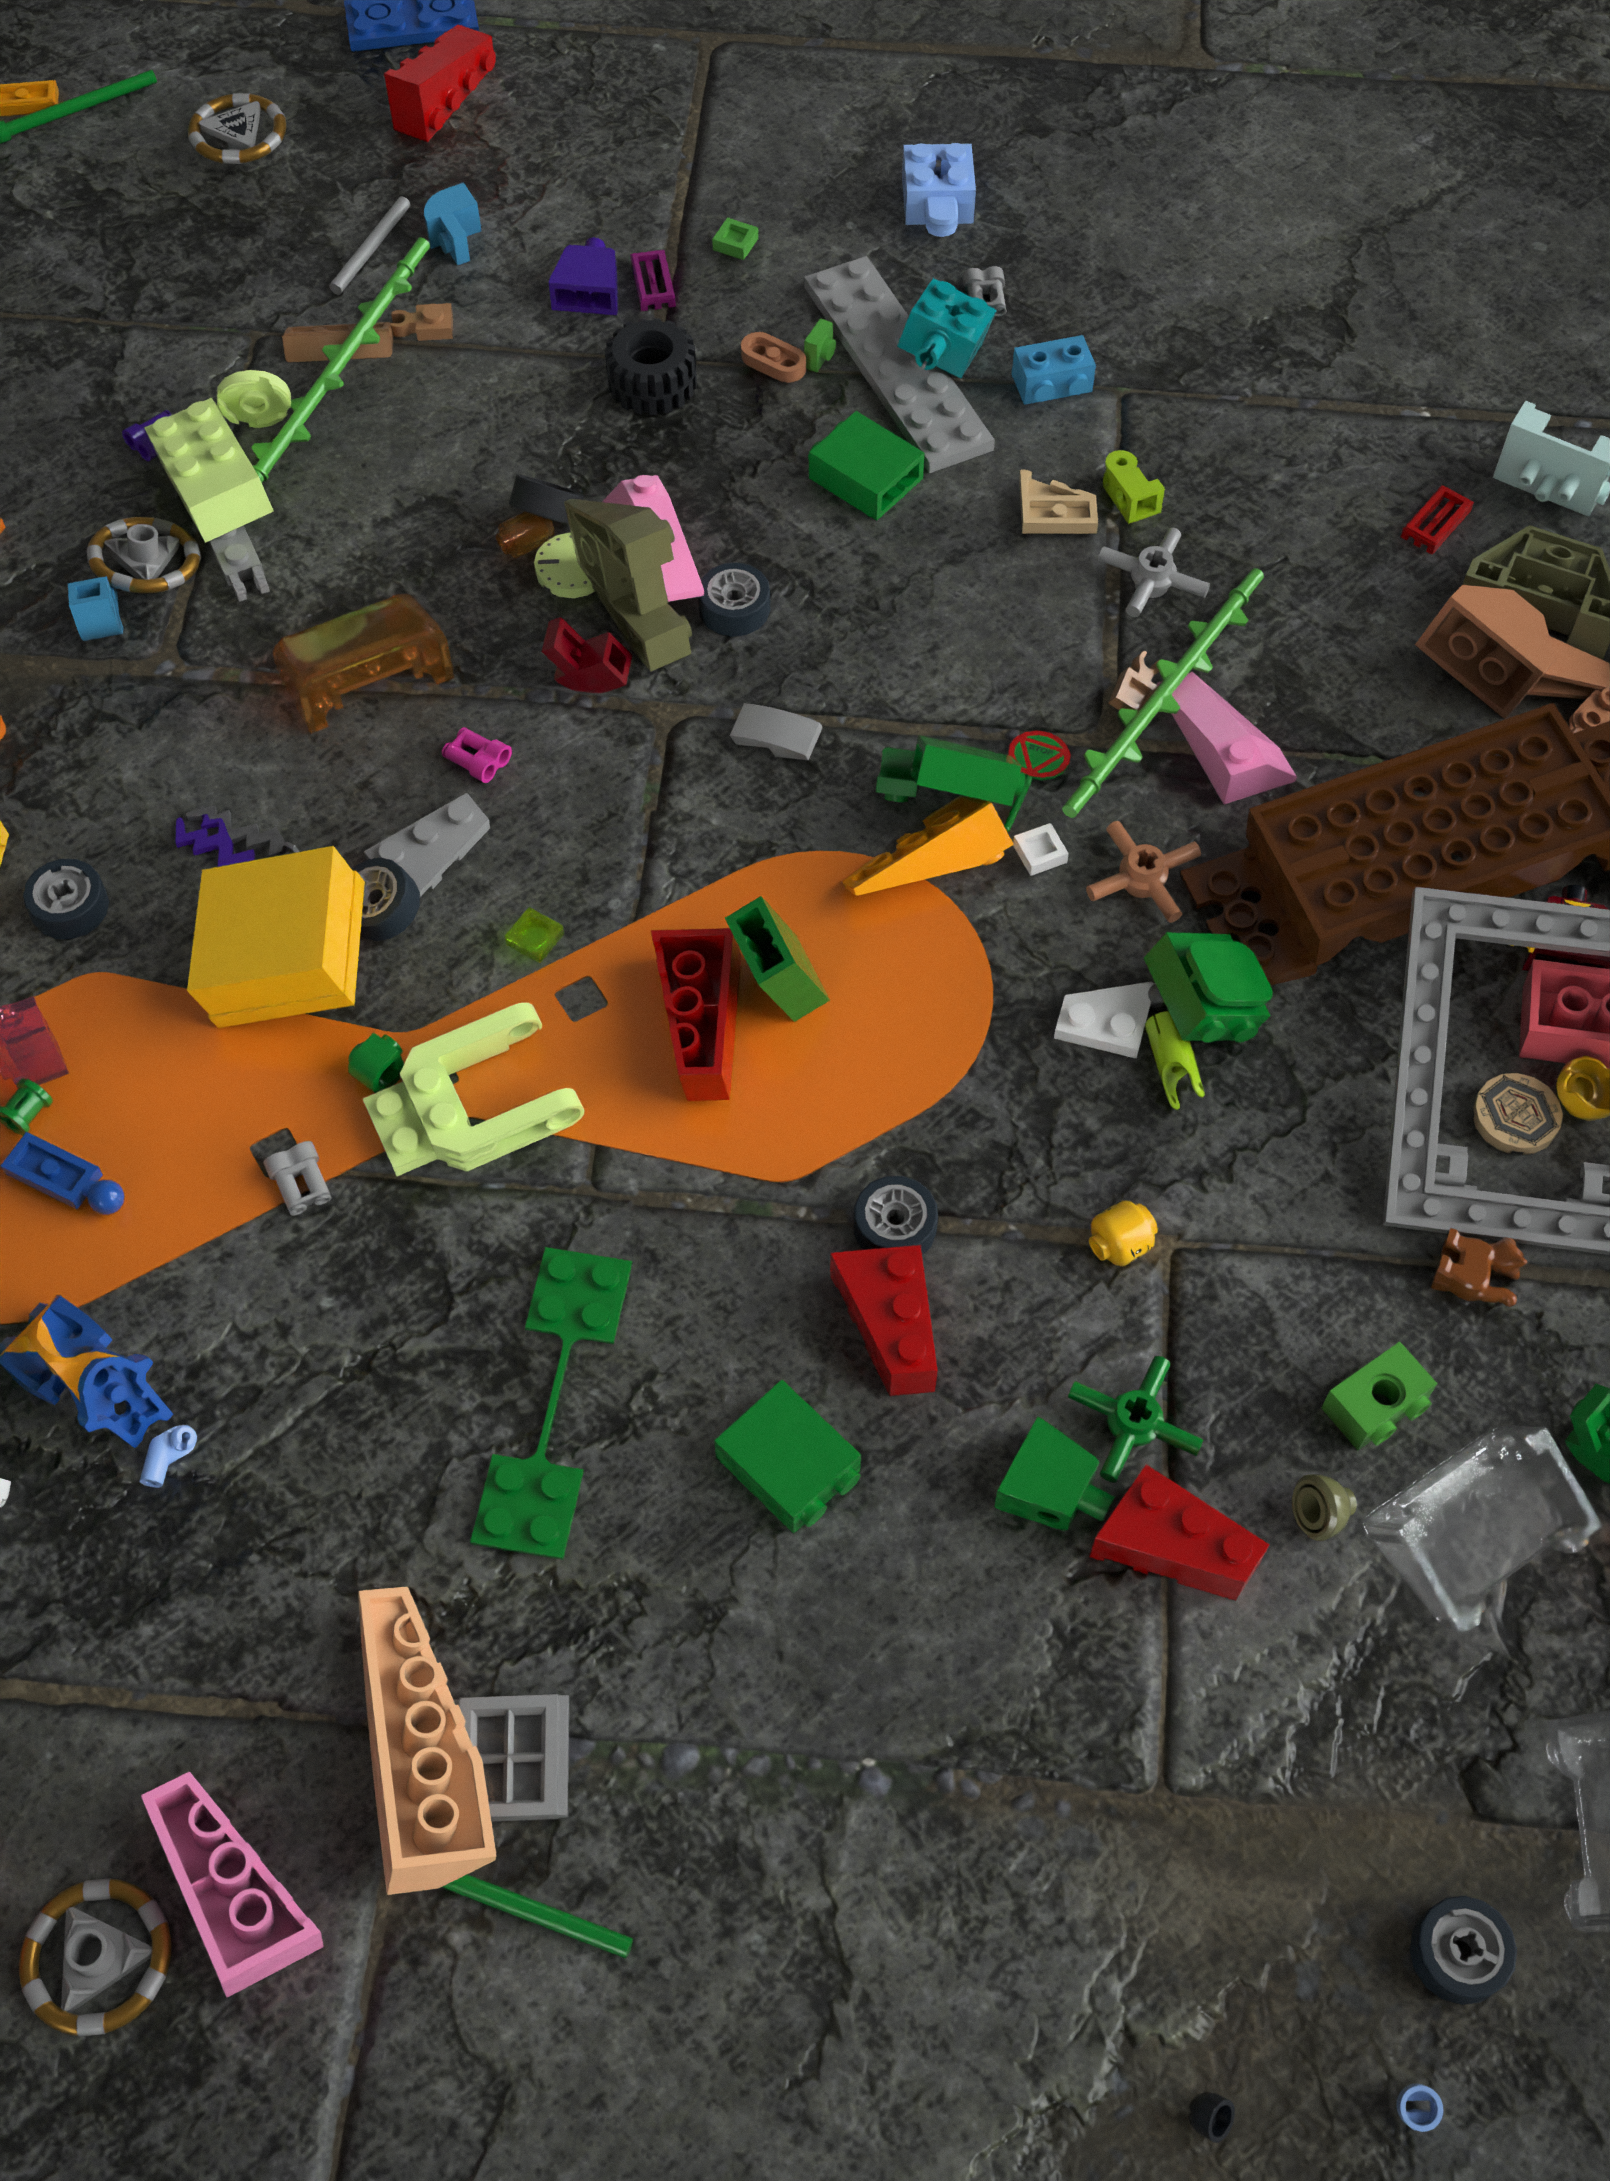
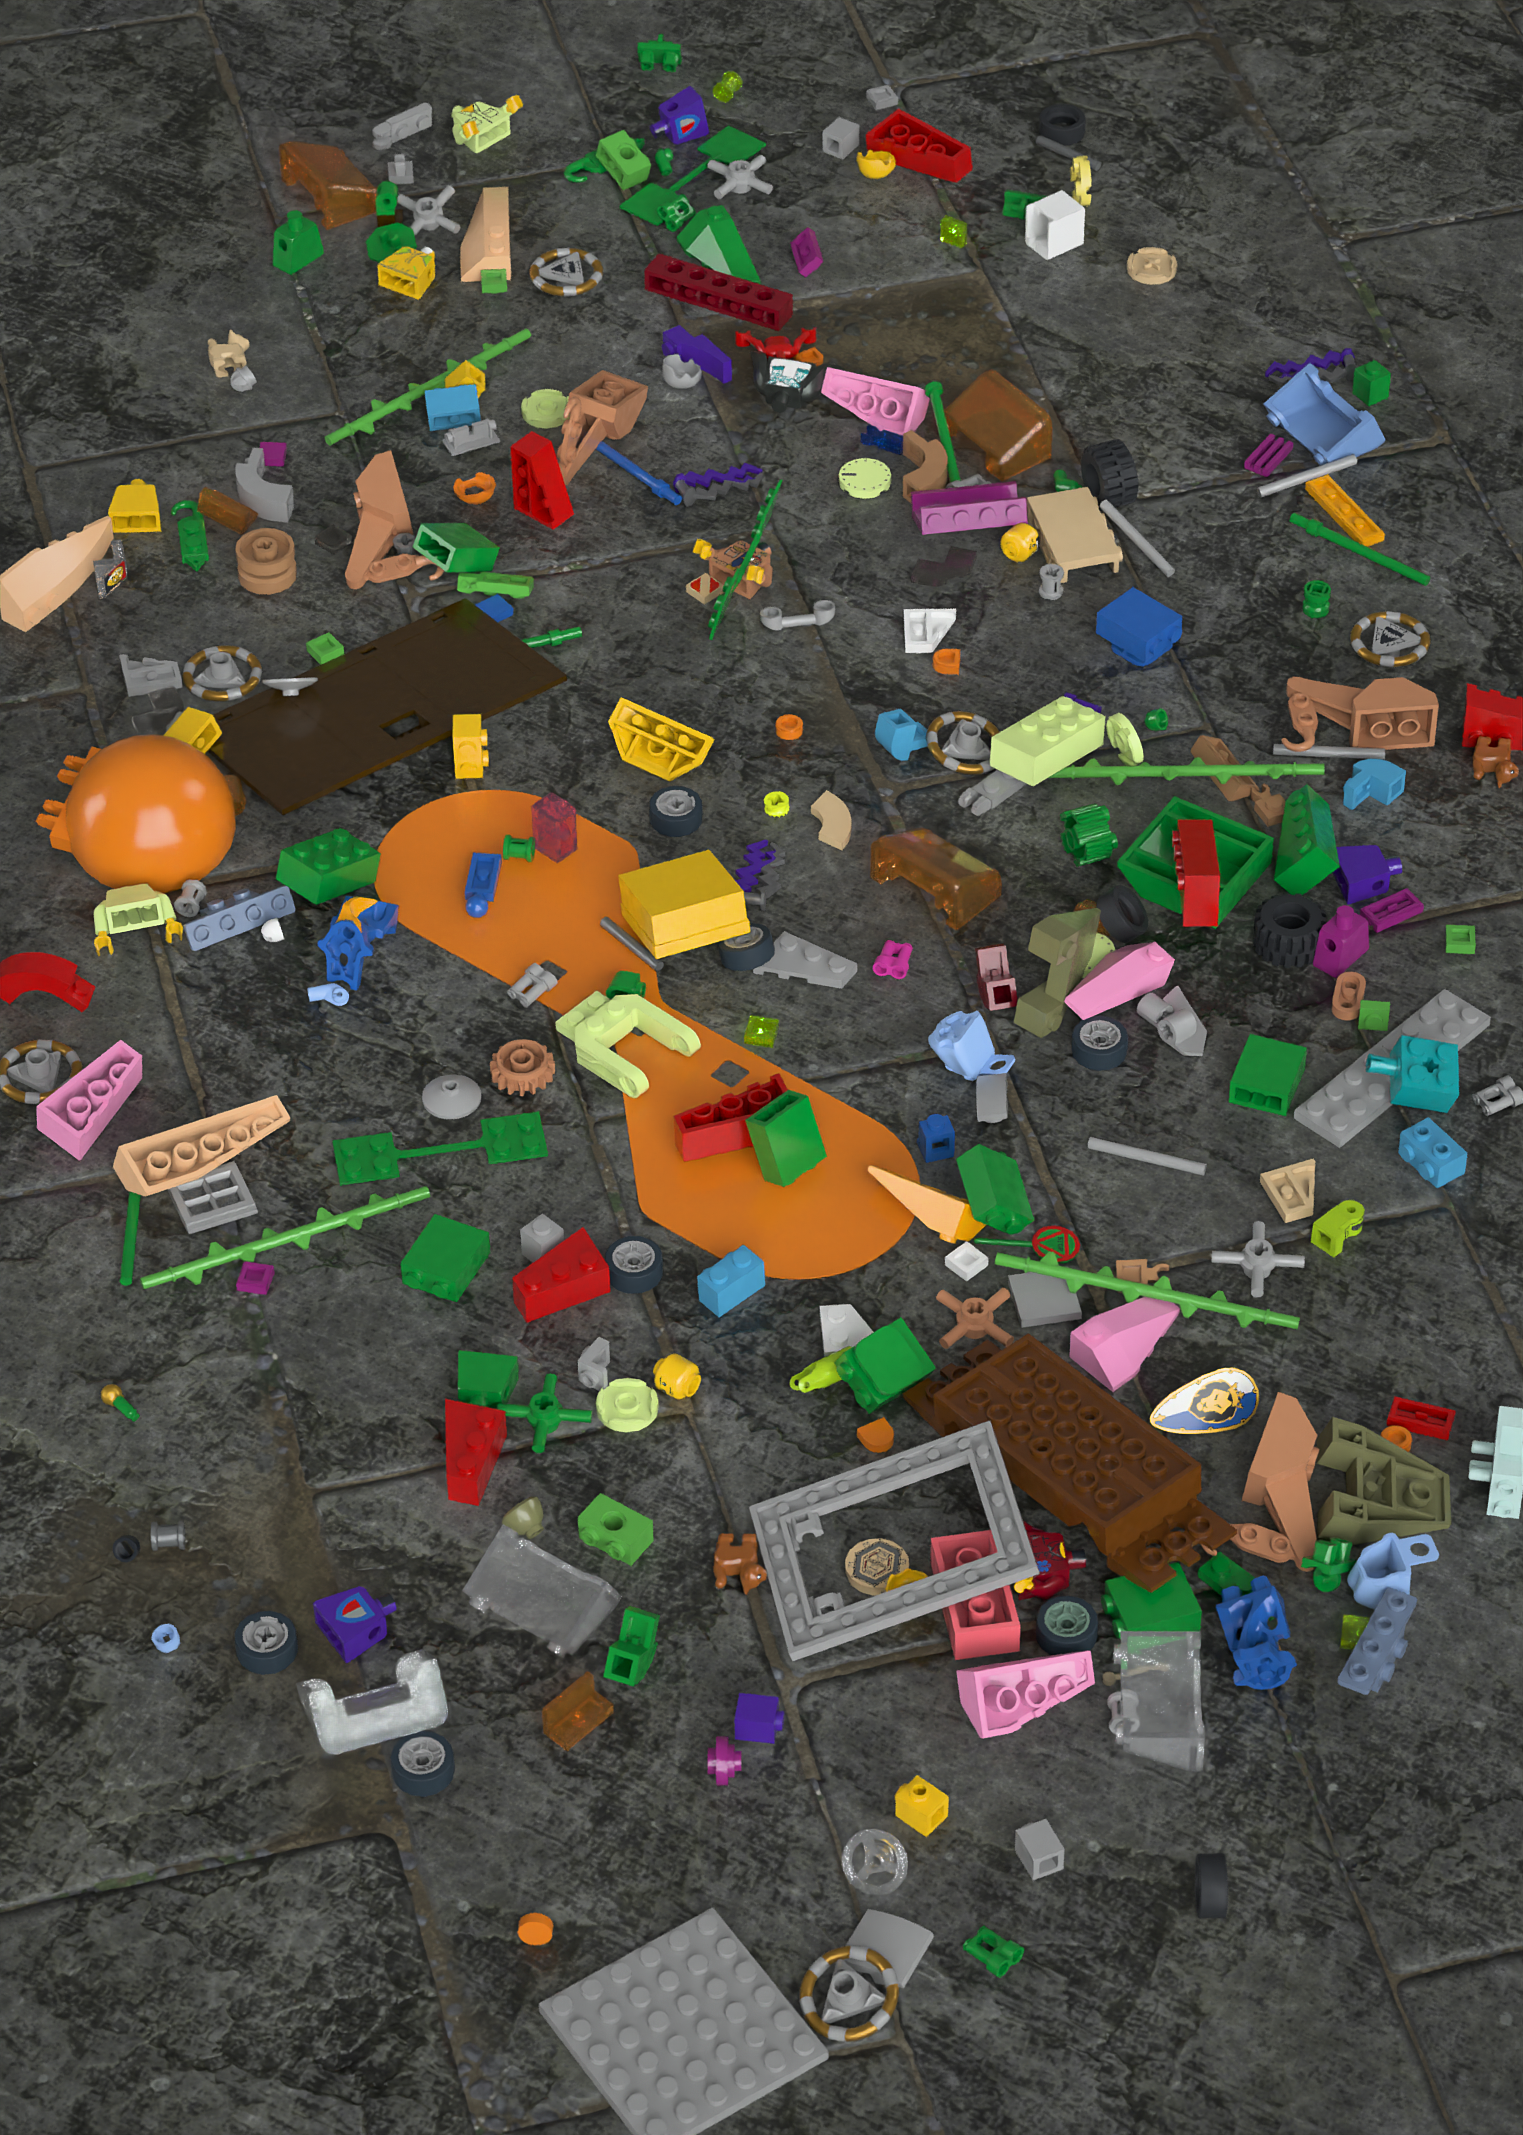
camera: 70 degrees right, 15 degrees down
(67, 325) = (1139, 627): none -> blue brick
(120, 775) = (782, 804): none -> neon yellow bush
(123, 164) = (1316, 599): none -> green wheel
(188, 733) = (834, 818): none -> tan tile
(220, 368) = (1156, 720): none -> green hinge
(284, 1032) = (631, 943): none -> dark grey bar
(360, 178) = (1383, 715): none -> nougat slope
(393, 485) = (1088, 834): none -> green brick
(460, 1369) = (451, 1096): none -> light grey dish
(464, 1258) = (522, 1066): none -> nougat gear
(476, 117) = (1494, 759): none -> dark orange animal
(500, 403) = (1151, 866): none -> green slope
(535, 302) = (1306, 842): none -> green wedge
(551, 389) = (1197, 872): none -> red wedge
(637, 1692) = (271, 1239): none -> bright green plant
(678, 732) = (966, 1046): none -> light blue piece
(703, 321) = (1341, 941): none -> magenta torso
(703, 1742) = (255, 1278): none -> magenta tile
(725, 520) = (1174, 1021): none -> light grey panel
(813, 1318) = (540, 1237): none -> light grey brick
(822, 809) = (935, 1130): none -> blue brick
(875, 2042) = (112, 1395): none -> piece
(933, 621) = (1147, 1156): none -> light grey bar
(981, 1112) = (731, 1280): none -> dark azure brick
(1059, 1326) = (593, 1363): none -> light grey bracket
(1130, 795) = (1042, 1299): none -> light grey tile
(1141, 1312) = (627, 1405): none -> yellowish green tile
(1206, 2040) = (168, 1535): none -> dark grey bush
(1295, 1041) = (876, 1436): none -> orange tile
(1373, 690) = (1208, 1403): none -> shield
(1457, 1804) = (353, 1620): none -> dark purple torso
(1462, 550) = (1399, 1436): none -> orange tile

